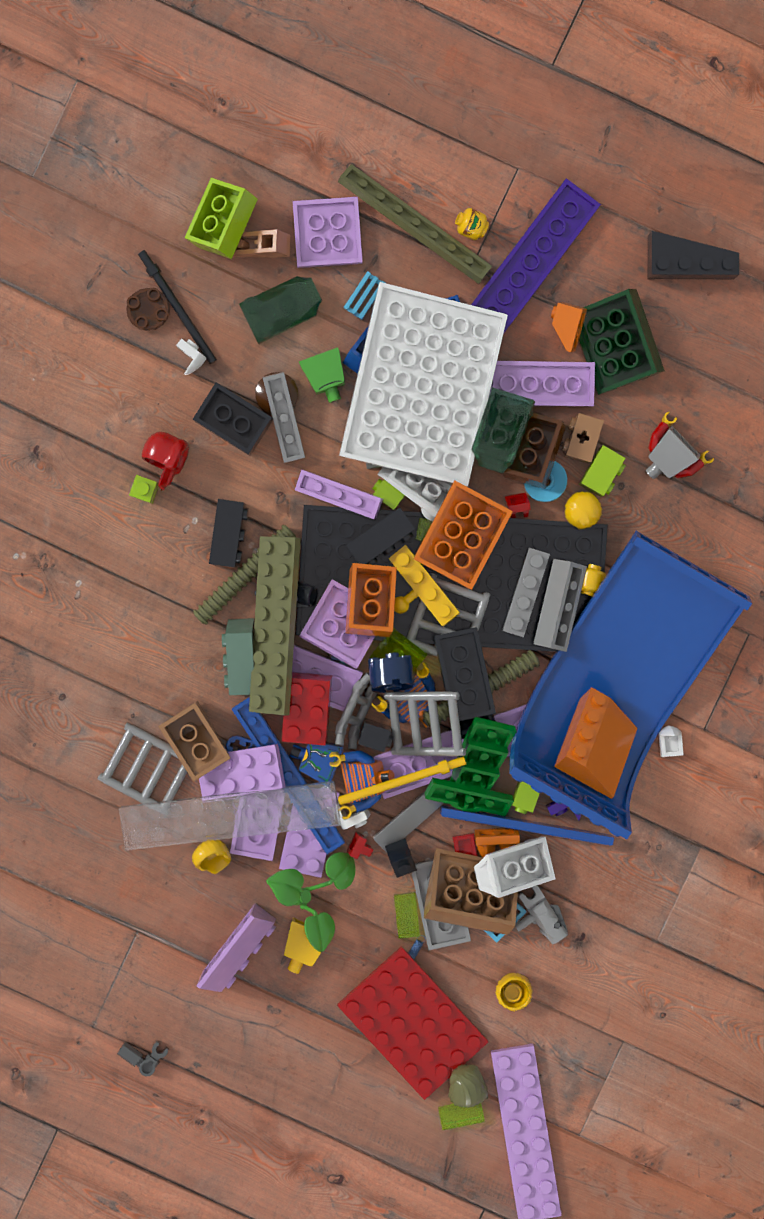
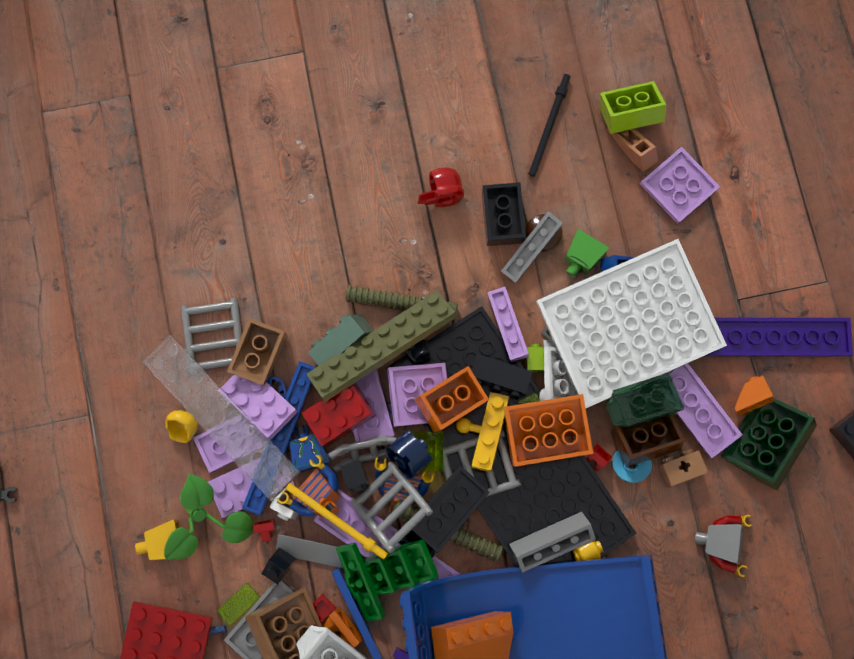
camera: 50 degrees right, 10 degrees down
(144, 489) = (409, 190): lime brick -> none
(147, 309) = (533, 106): reddish brown dish -> none
(190, 349) = (528, 153): white plate -> none
(228, 533) = (422, 269): black brick -> none
(237, 949) = (123, 494): lavender slope -> none
(281, 307) = (604, 192): clear green slope -> none
(368, 275) = (672, 234): medium azure tile -> none
(414, 223) = (733, 239): olive plate -> none
(472, 224) = (765, 277): yellow head -> none
(524, 798) = (391, 626): lime brick -> none
(526, 592) = (541, 510): light grey plate -> none
(583, 510) = (632, 507): yellow hair -> none
(602, 471) = (671, 500): lime brick -> none

